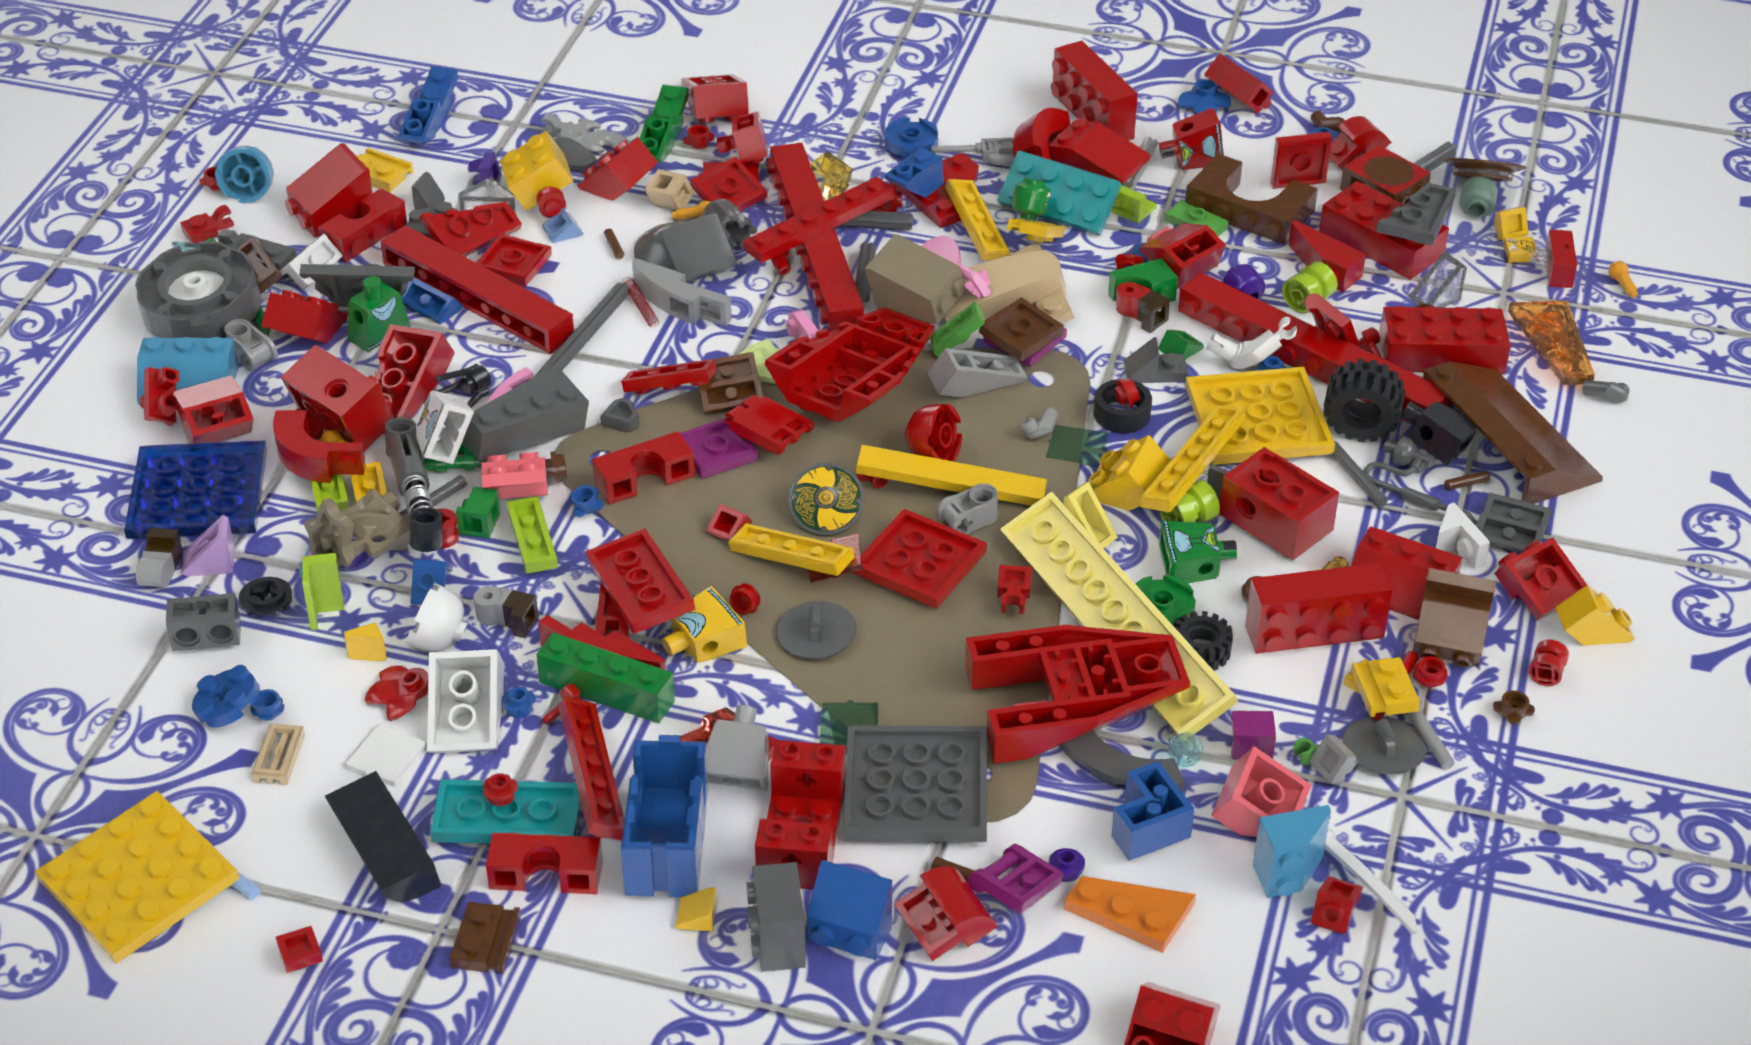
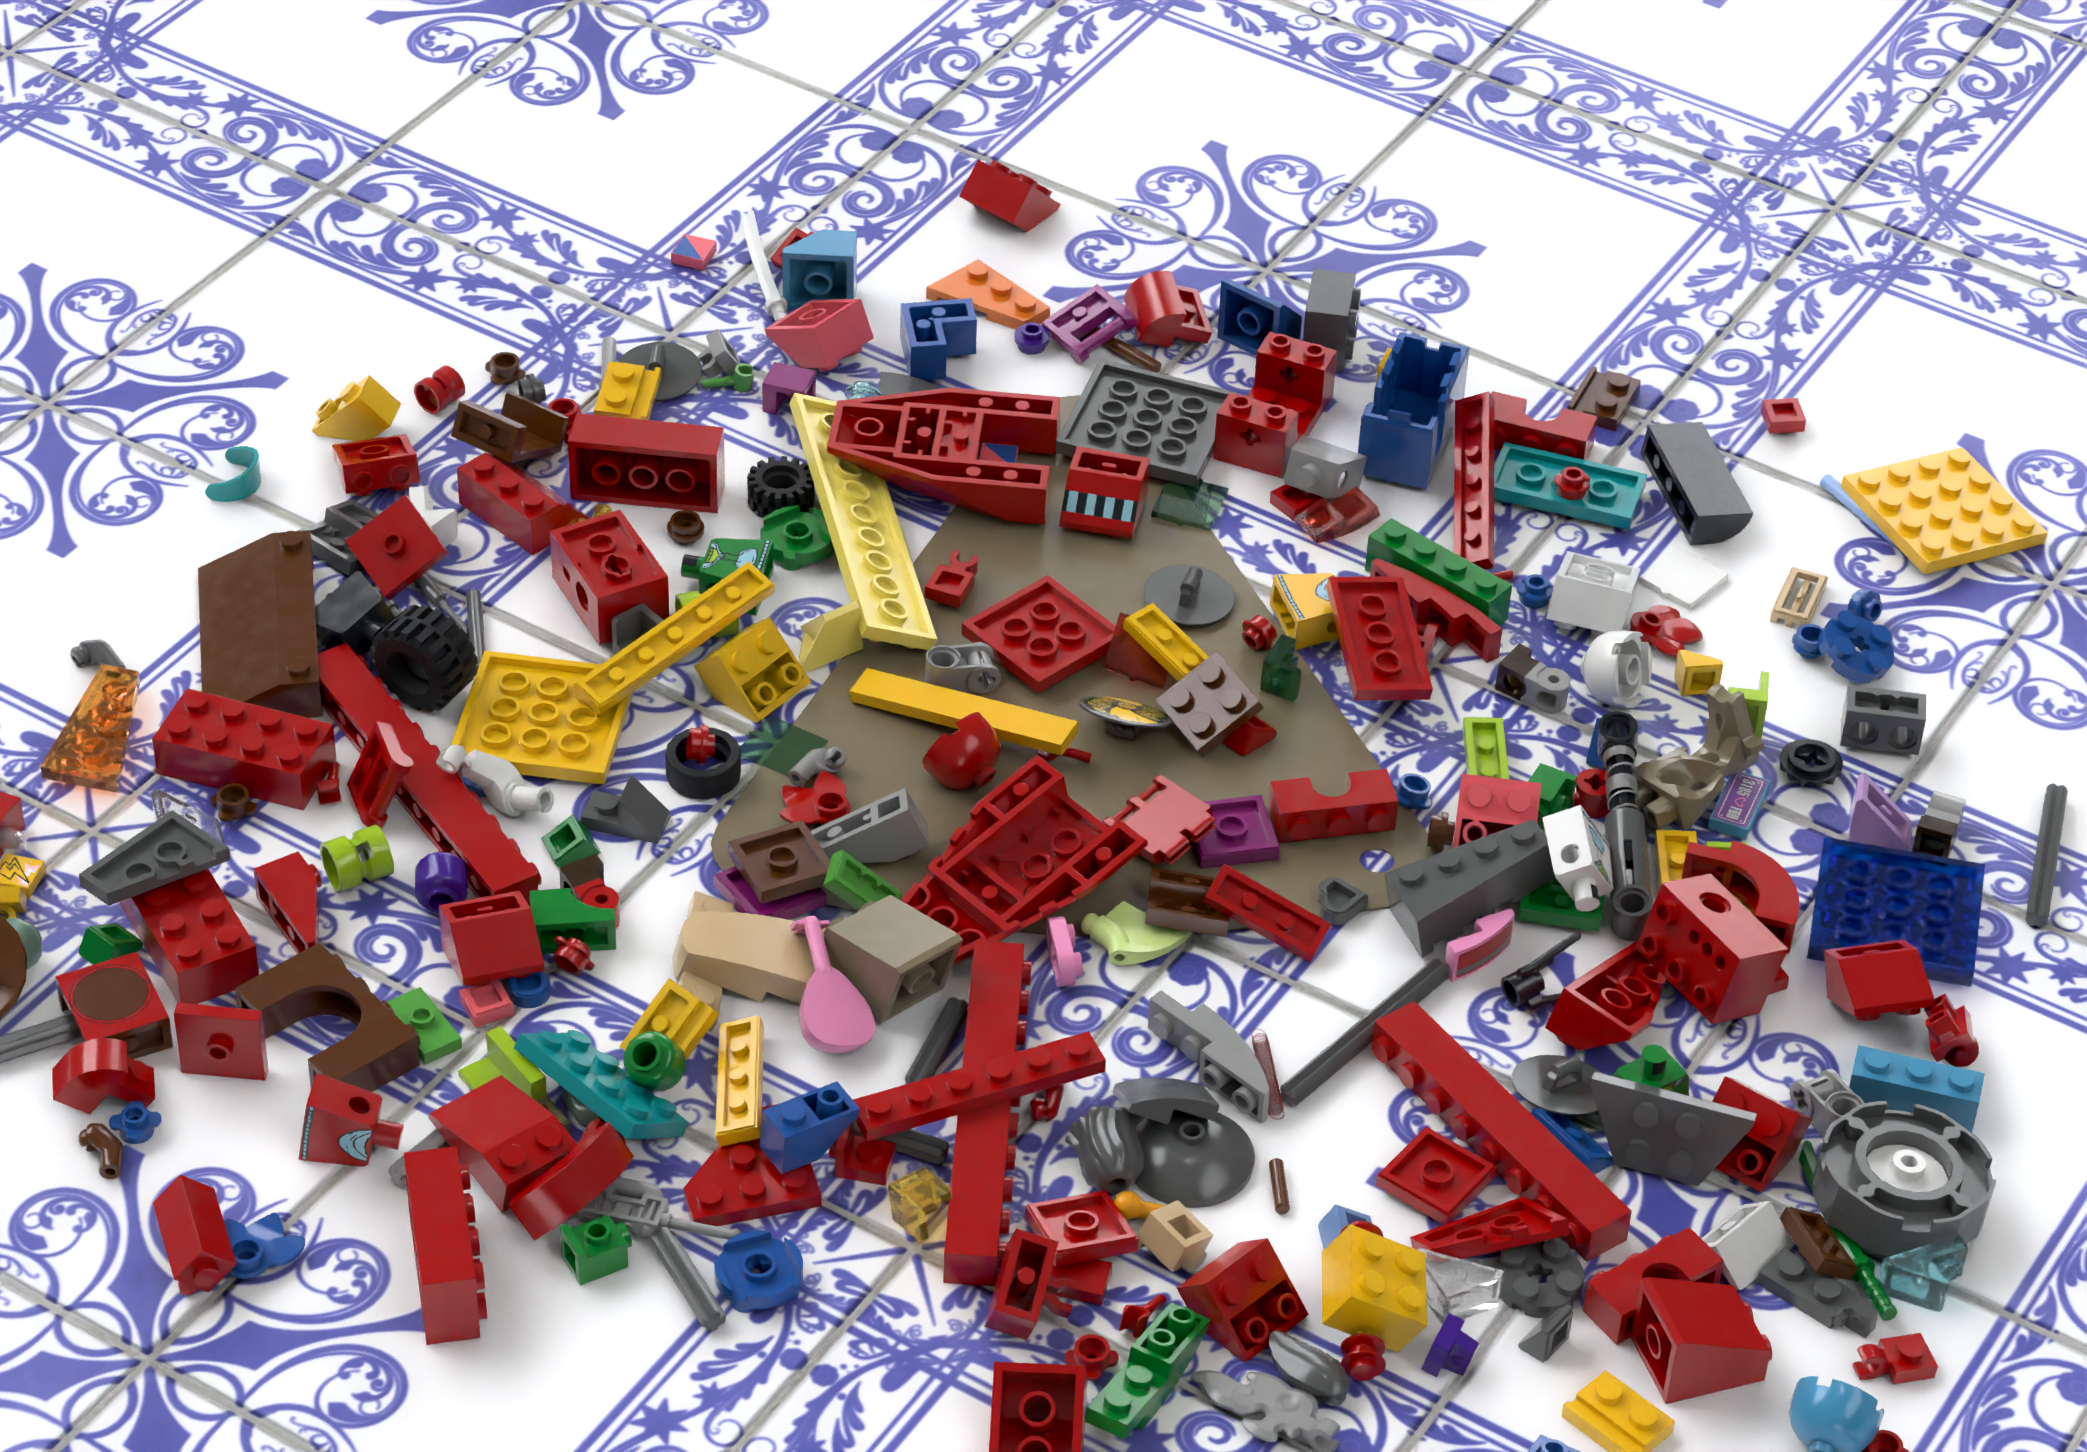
camera: 165 degrees left, 0 degrees up
(71, 565) = (2046, 855): none -> dark grey axle
(216, 745) = (1866, 604): none -> blue plate
(444, 318) = (1556, 1084): none -> dark grey shield
(677, 160) = (1137, 1317): none -> red hand
(716, 563) = (1280, 670): none -> clear green bracket
(762, 512) = (1209, 704): none -> plate
(921, 690) = (1105, 492): none -> red slope
(949, 127) = (687, 1279): none -> dark grey axle
(1007, 123) = (595, 1248): none -> green brick
(1025, 398) = (816, 804): none -> red plate
(1443, 889) = (693, 252): none -> coral tile
(1459, 494) = (397, 547): none -> red plate
(1471, 680) = (532, 388): none -> dark grey plate
(1638, 564) = (242, 485): none -> teal helmet

